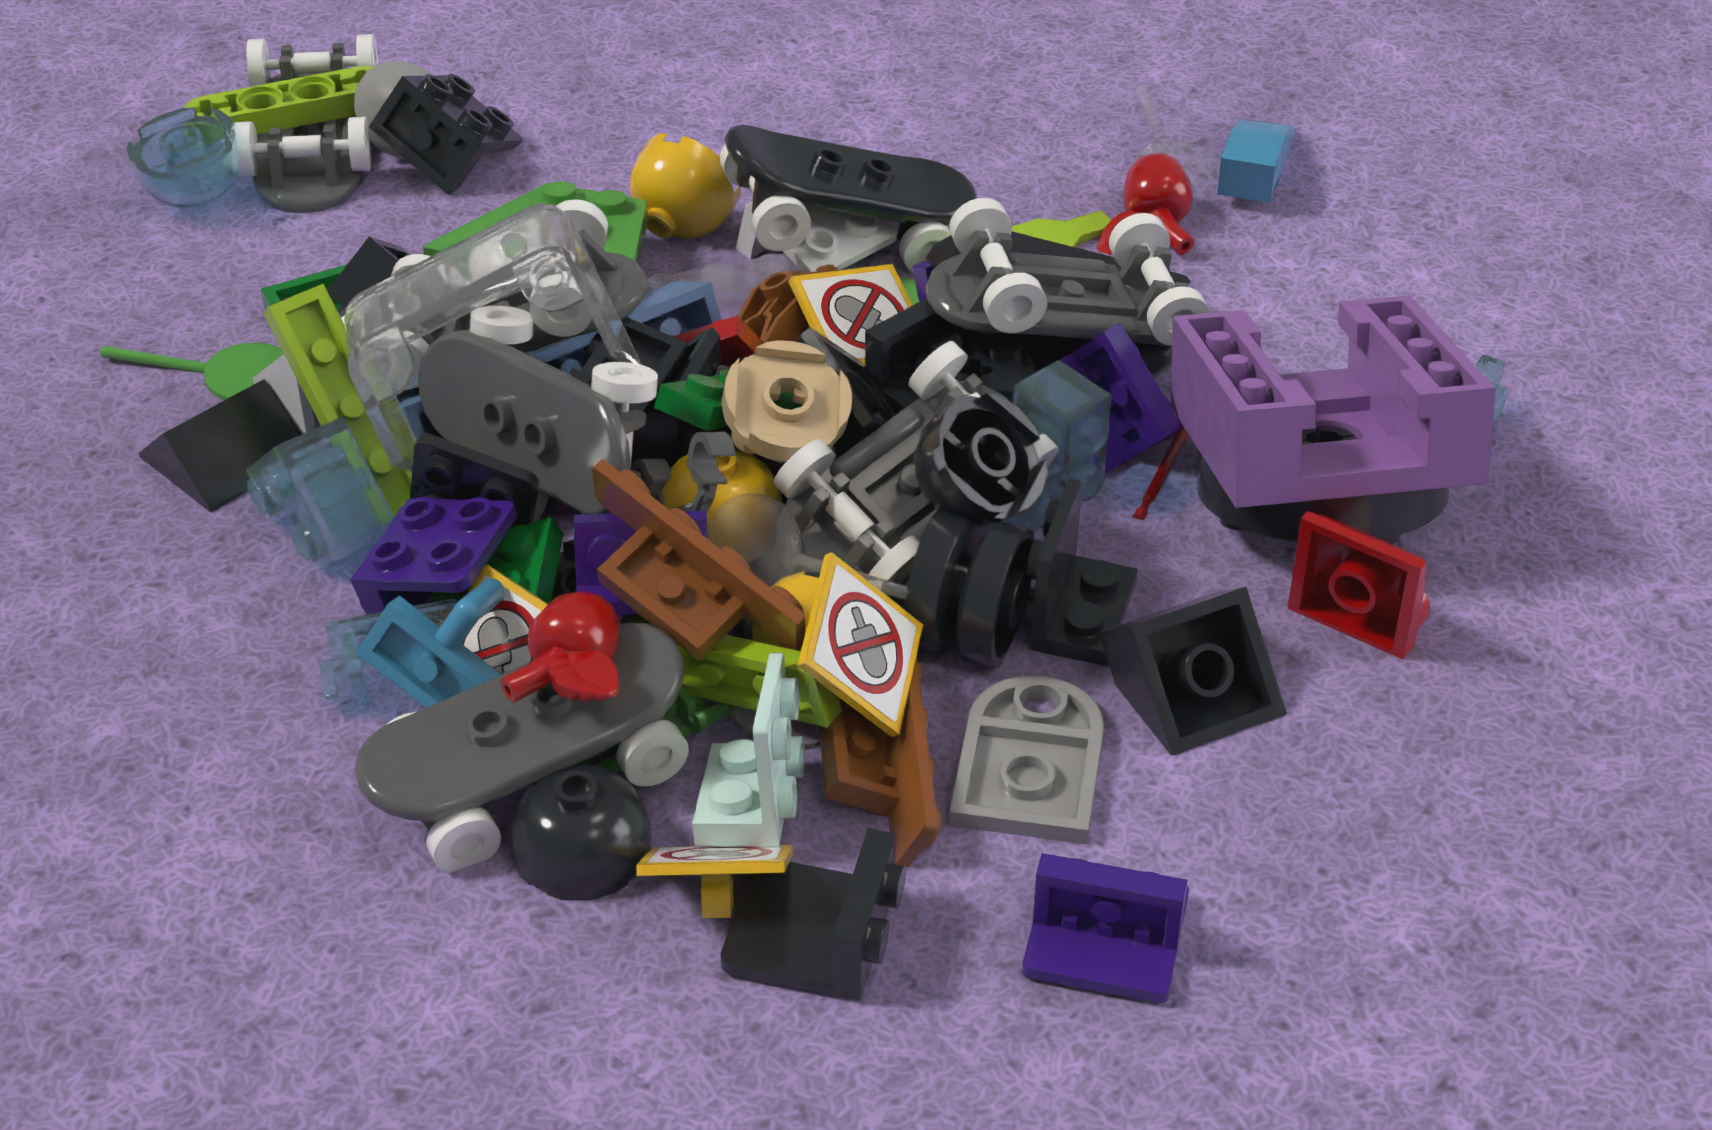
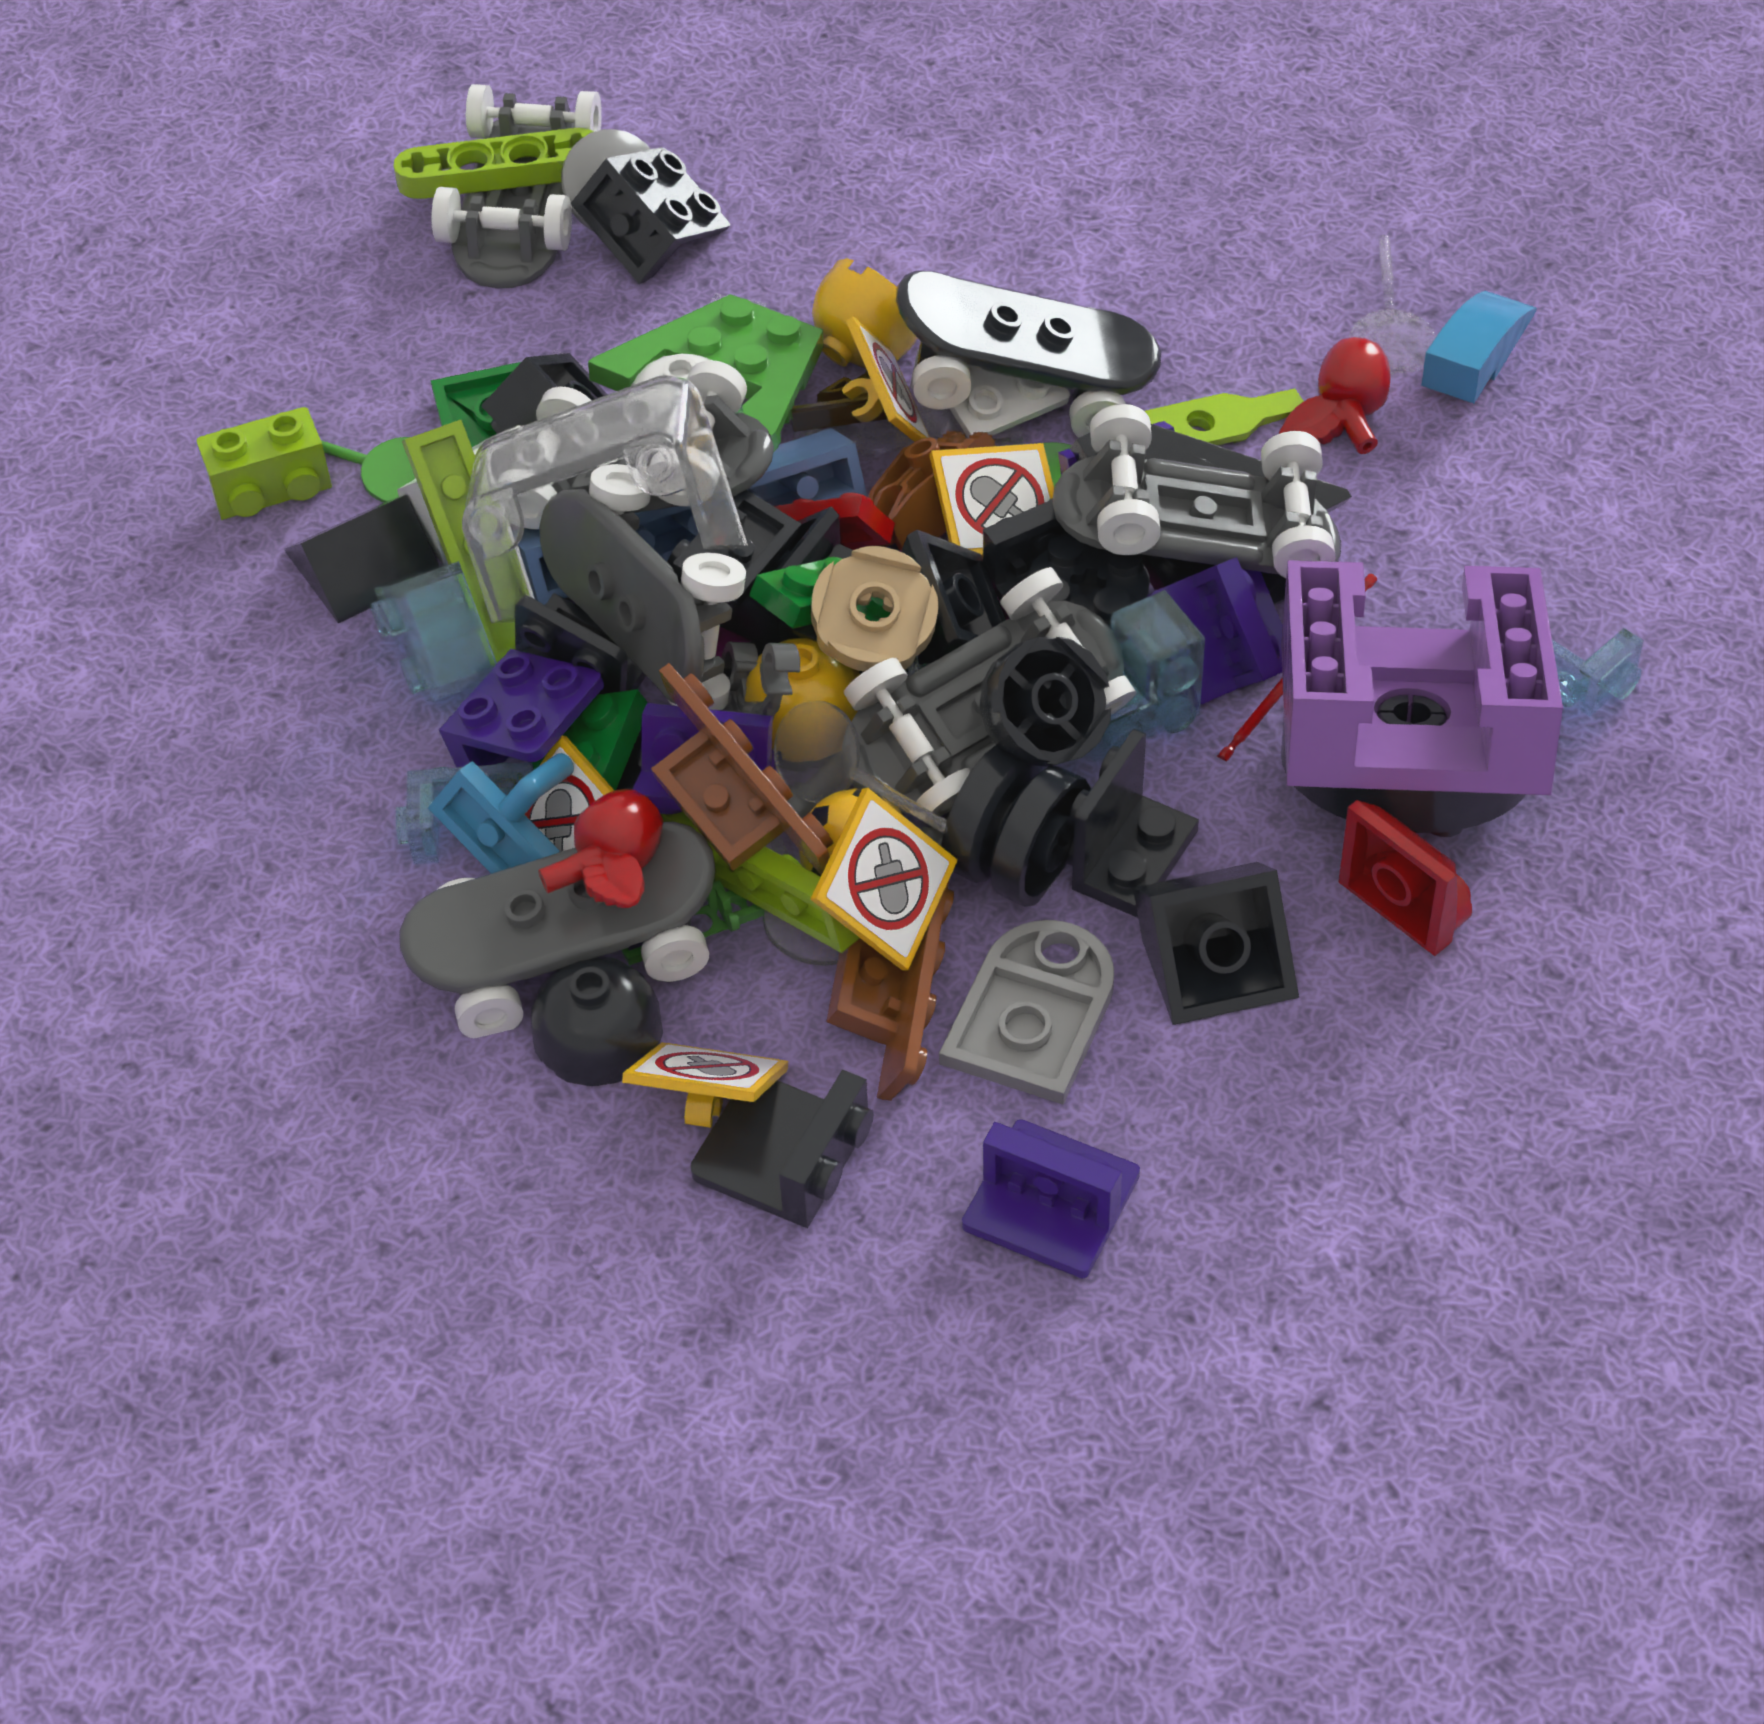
camera: 15 degrees right, 10 degrees up
(105, 375) = (264, 463): none -> lime bracket
(186, 157) = (385, 218): clear light blue cylinder -> none
(684, 260) = (831, 409): none -> dark brown tile
(723, 233) = (885, 387): none -> piece
(753, 783) = (764, 986): light aqua bracket -> none

